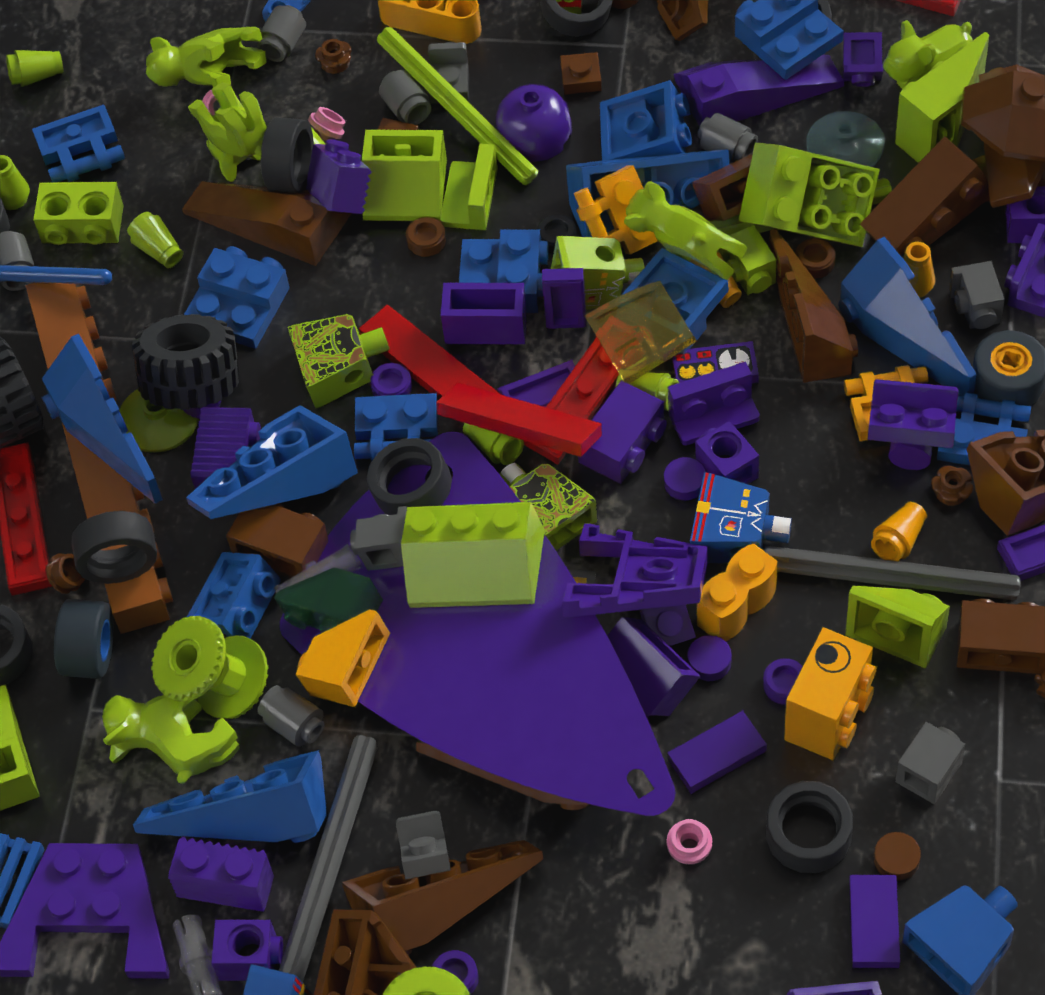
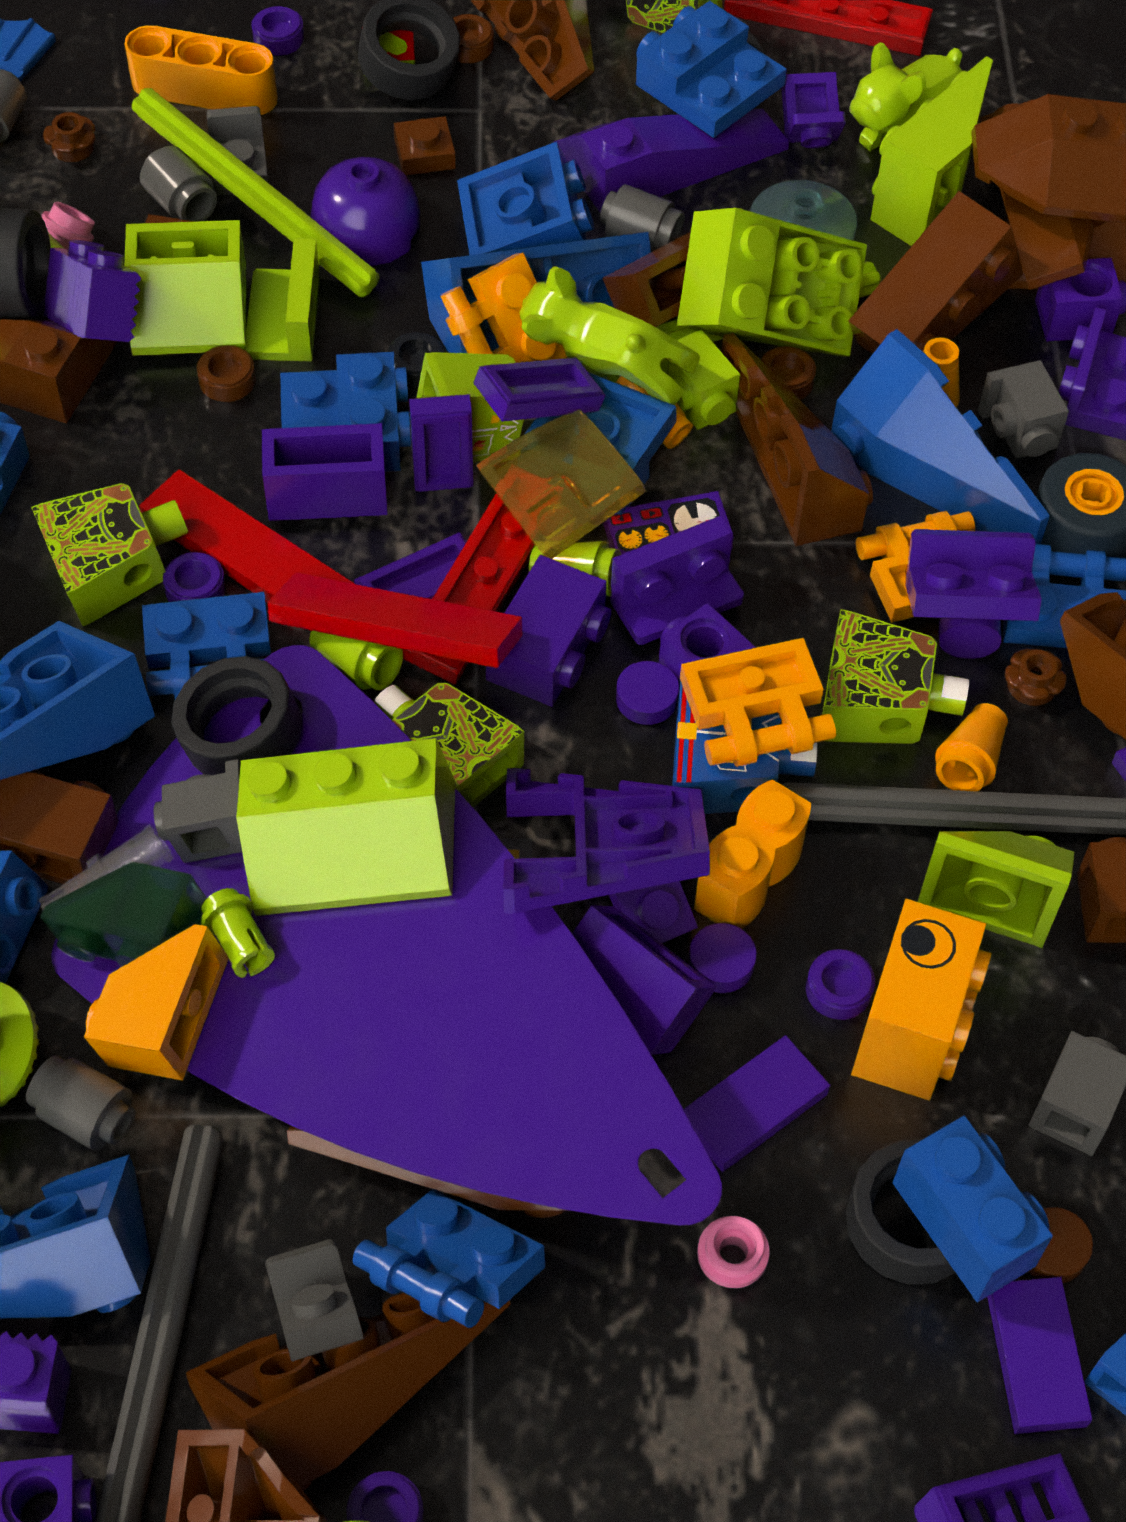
camera: 15 degrees left, 0 degrees up
(392, 608) = (231, 921): none -> lime pin
(509, 828) = (463, 1251): none -> blue plate
(632, 265) = (538, 389): none -> dark purple tile
(746, 480) = (753, 685): none -> light orange plate
(837, 824) = (972, 1207): none -> blue brick
(844, 483) = (885, 682): none -> torso

